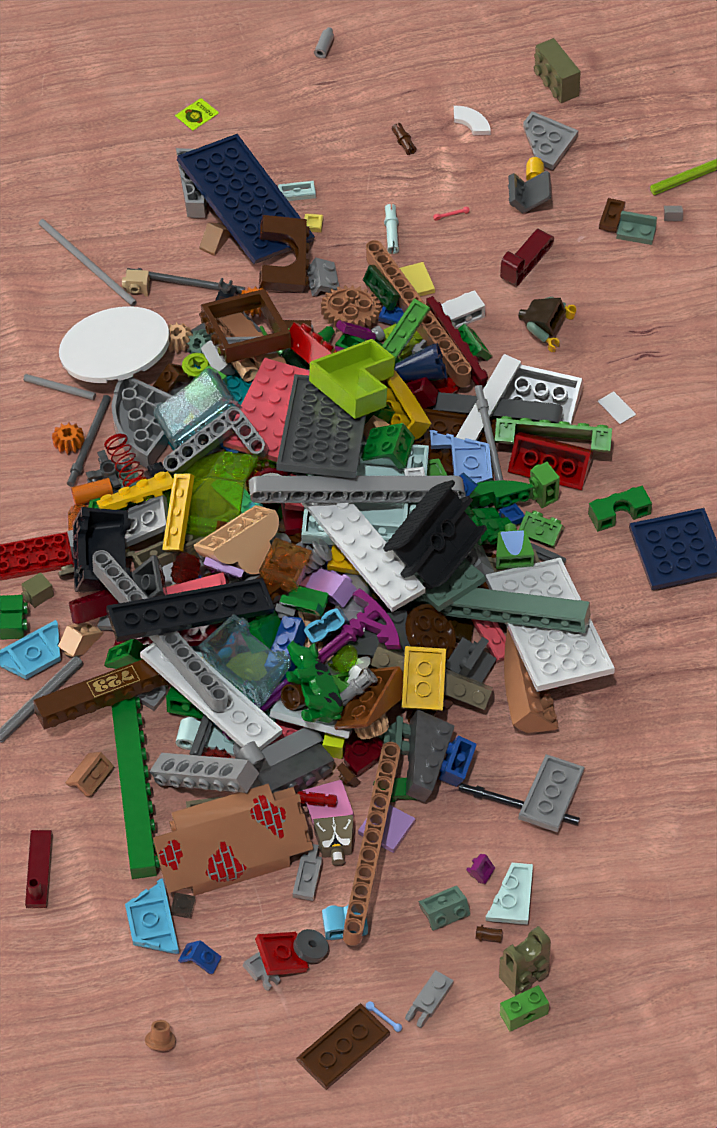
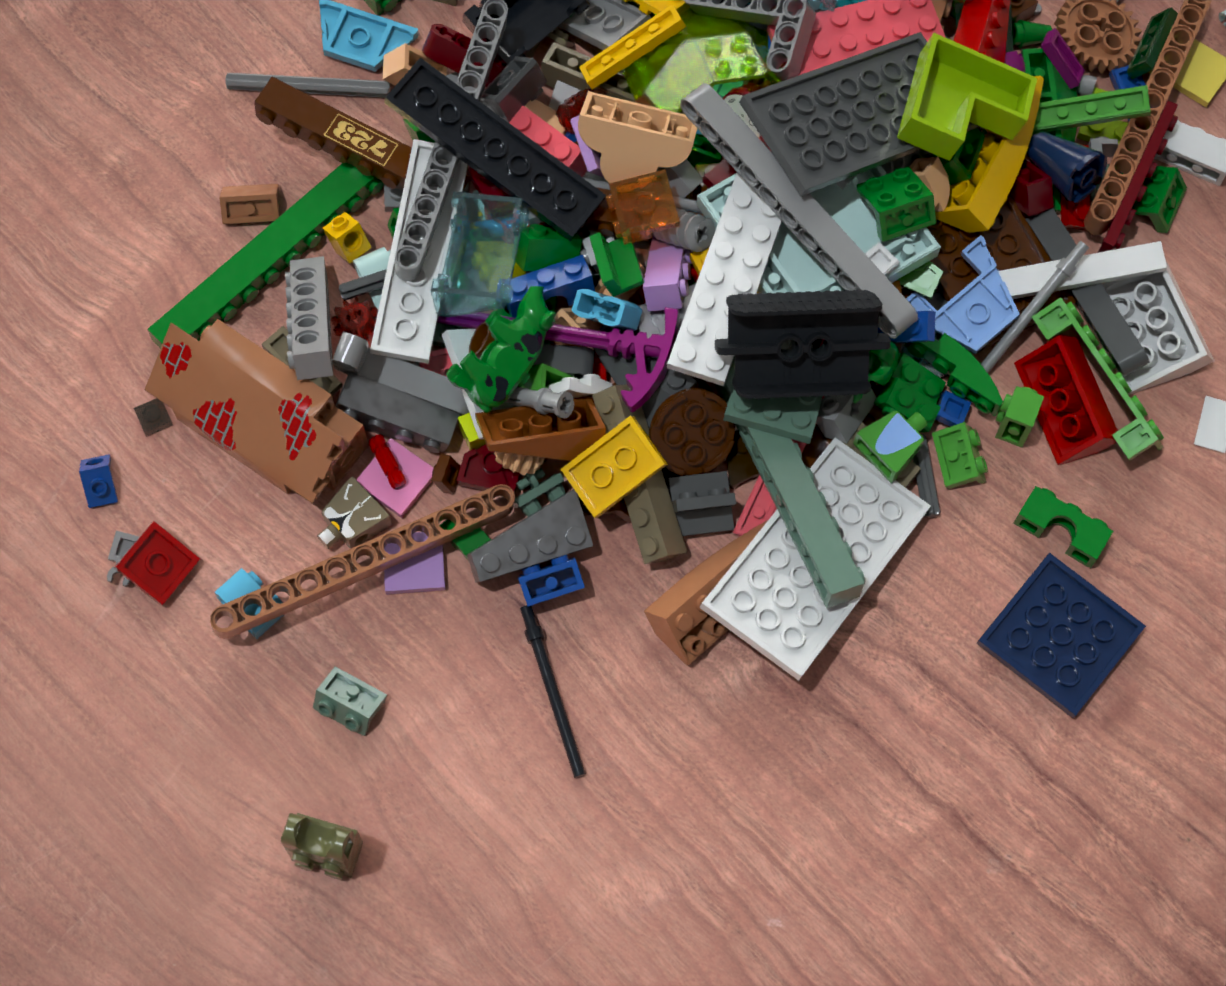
camera: 50 degrees right, 15 degrees up
(38, 869) = (92, 238): dark red piece -> none
(151, 920) = (107, 398): medium azure wing -> none
(159, 734) = (347, 237): none -> yellow brick
(305, 951) = (204, 582): dark grey piece -> none
(308, 875) = (284, 521): light grey hinge -> none
(343, 1046) = (92, 712): reddish brown tile -> none
(345, 659) = (576, 362): clear neon green hair -> none
(370, 1007) = (165, 706): light blue hinge -> none
(430, 997) = (219, 766): light grey hinge -> none
(481, 868) = (429, 708): magenta tile -> none
(489, 934) = (348, 774): reddish brown pin -> none
(513, 898) = (419, 770): light aqua wing -> none
(524, 1008) = (272, 883): bright green brick -> none
(551, 793) = (592, 718): light grey tile -> none

